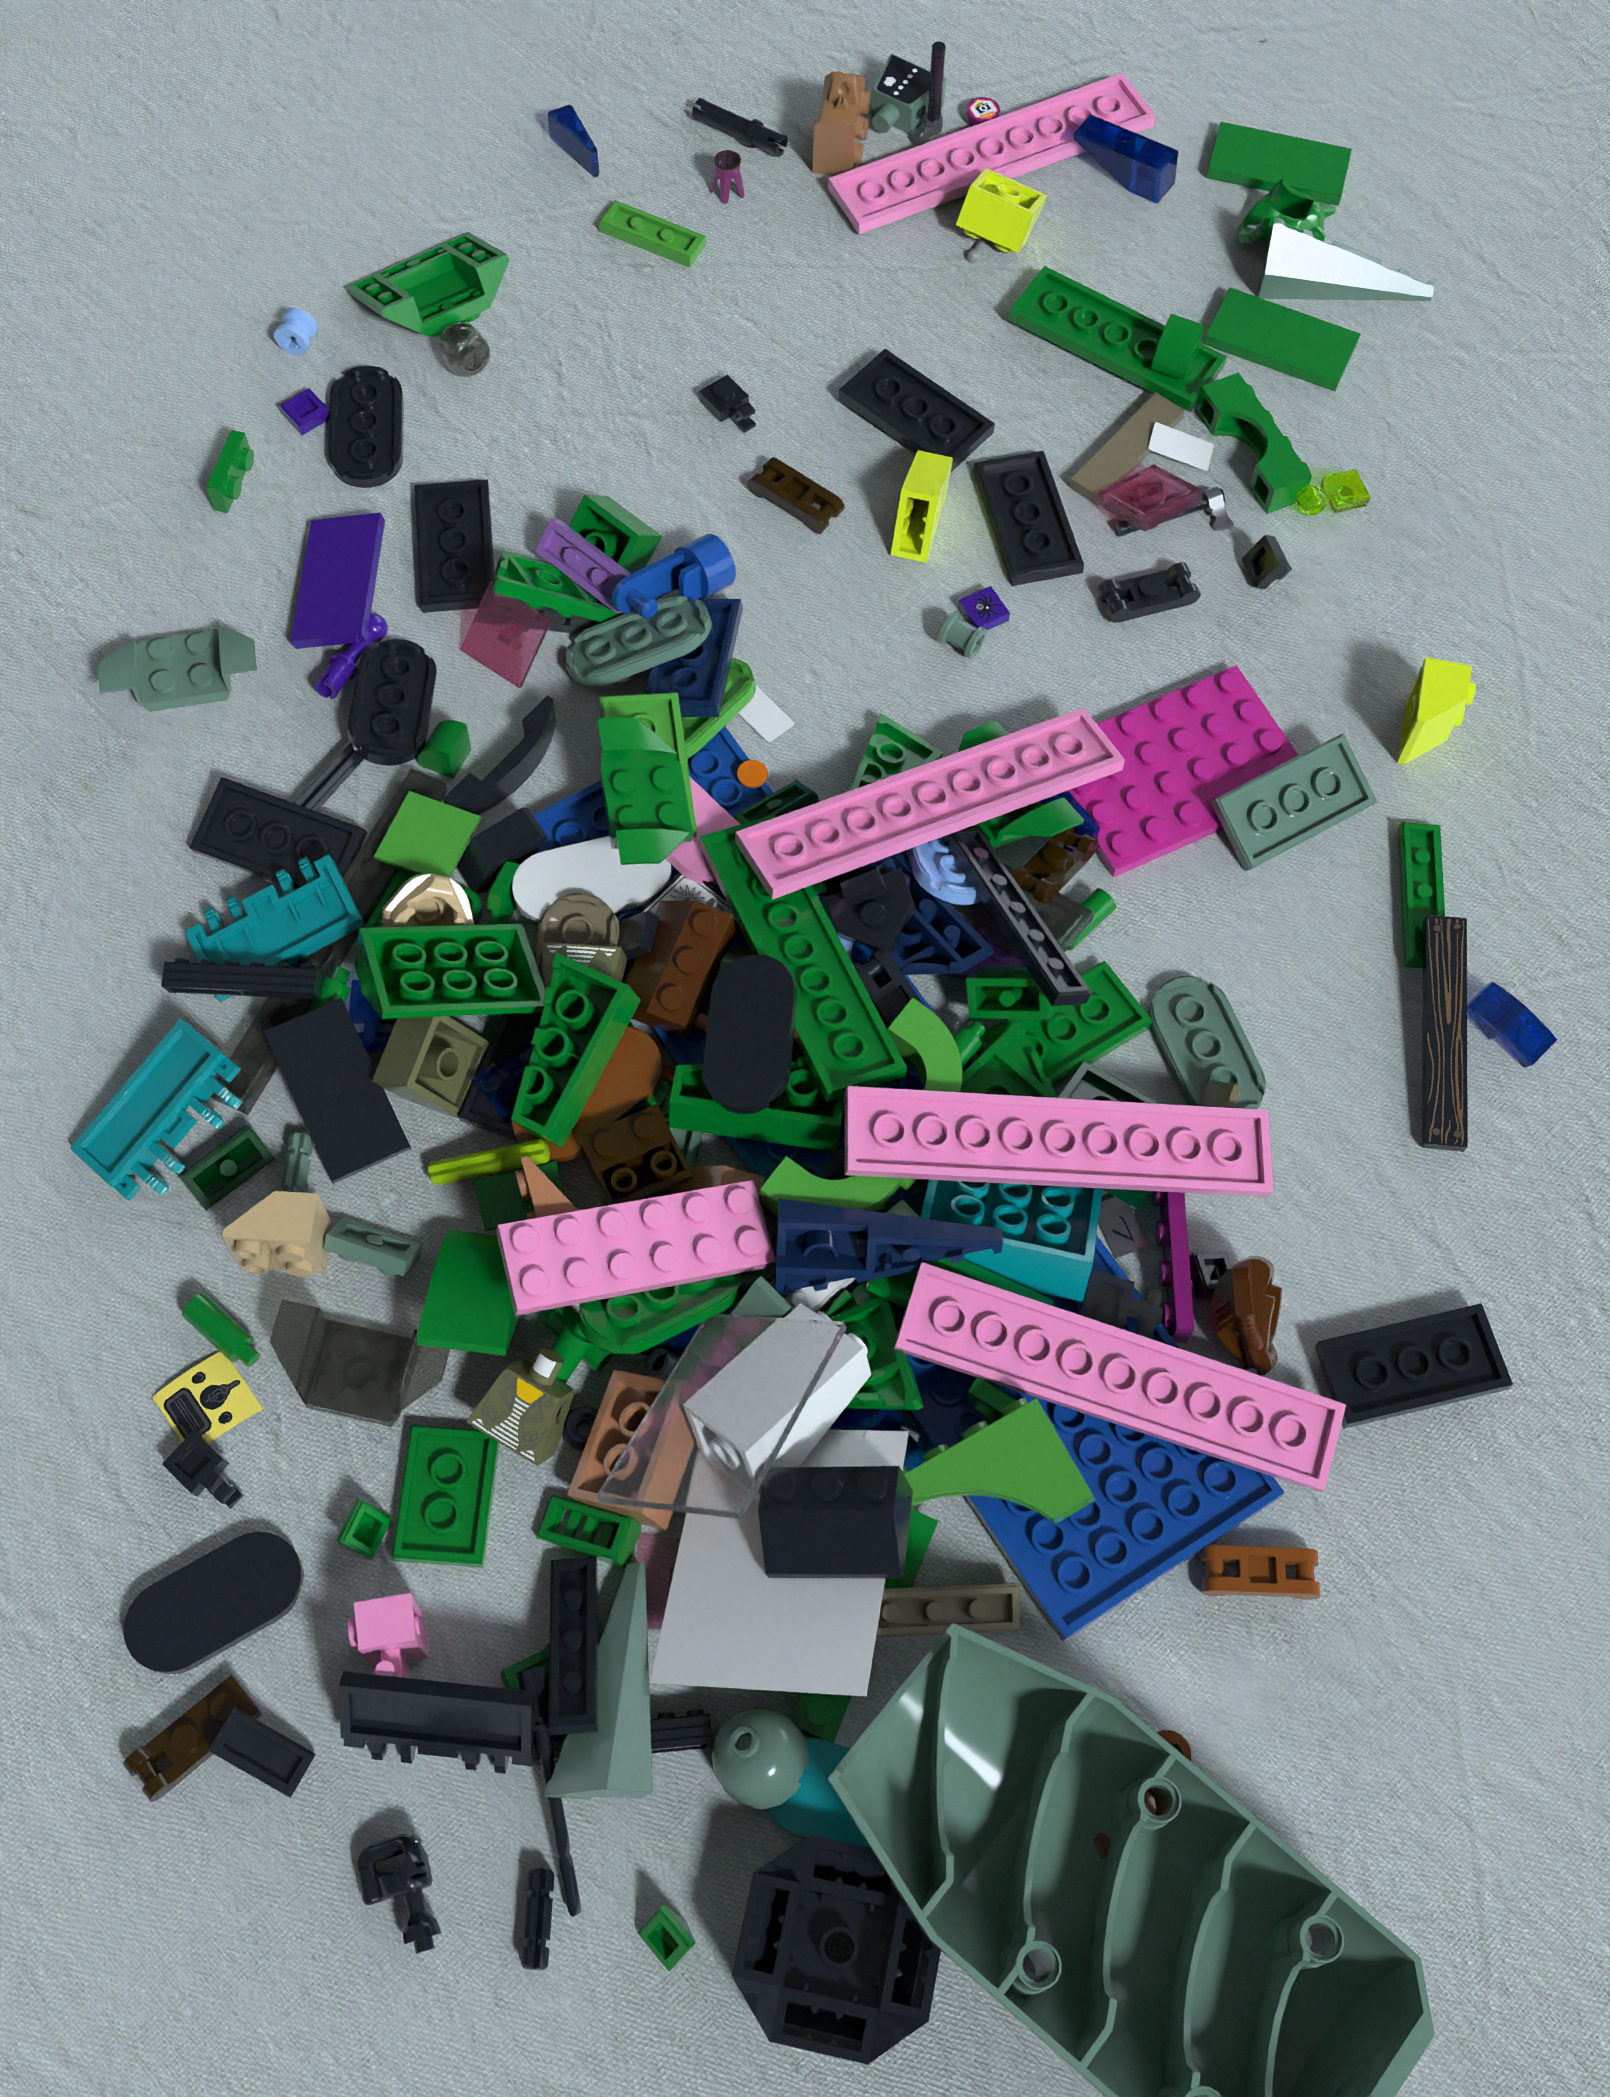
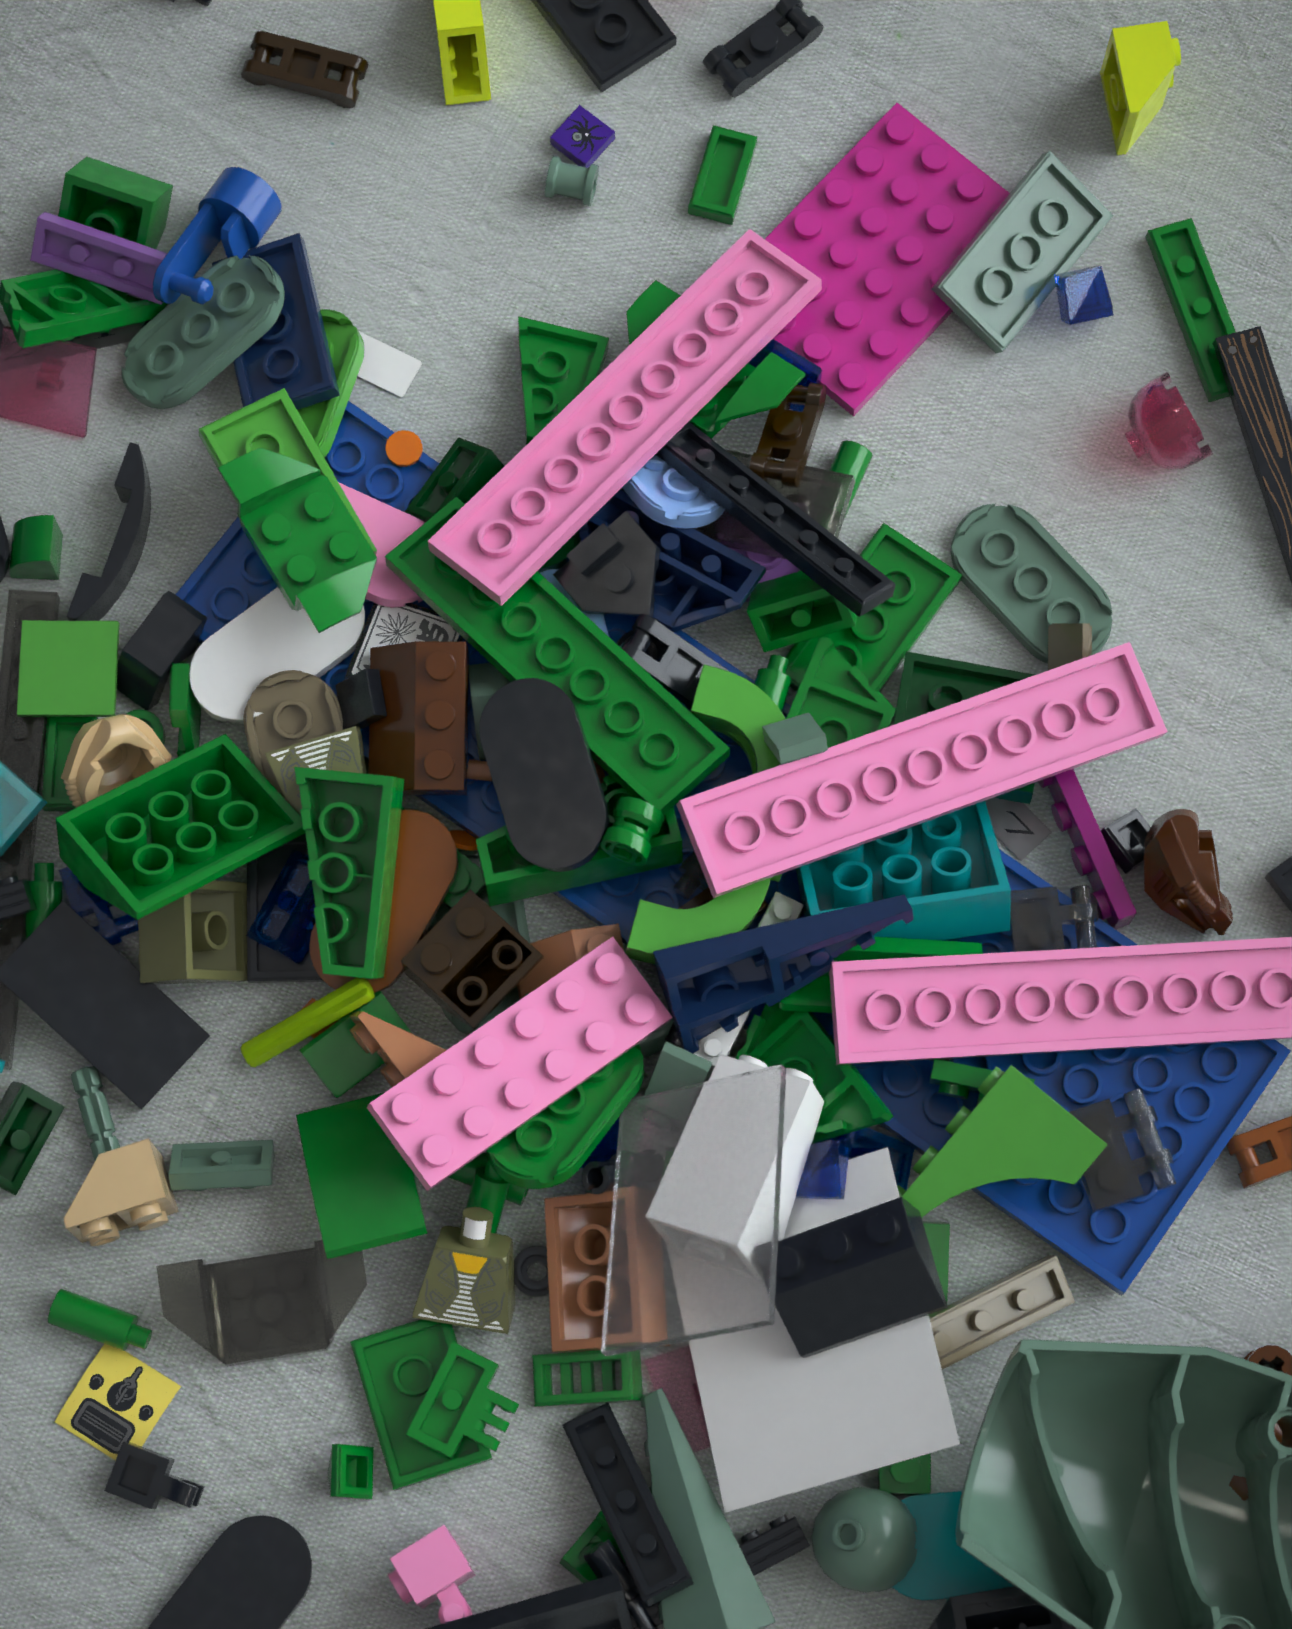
camera: 20 degrees left, 10 degrees up
(473, 1507) = (460, 1404): none -> green hinge
(801, 1100) = (632, 830): none -> green wheel
(849, 1431) = (824, 1171): none -> clear blue slope
(961, 1077) = (795, 738): none -> sand green tile
(1080, 671) = (722, 175): none -> green tile
(1091, 1530) = (1113, 1174): none -> clear smoke plate
(1331, 849) = (1083, 295): none -> clear blue slope
(1360, 966) = (1164, 427): none -> clear pink cylinder

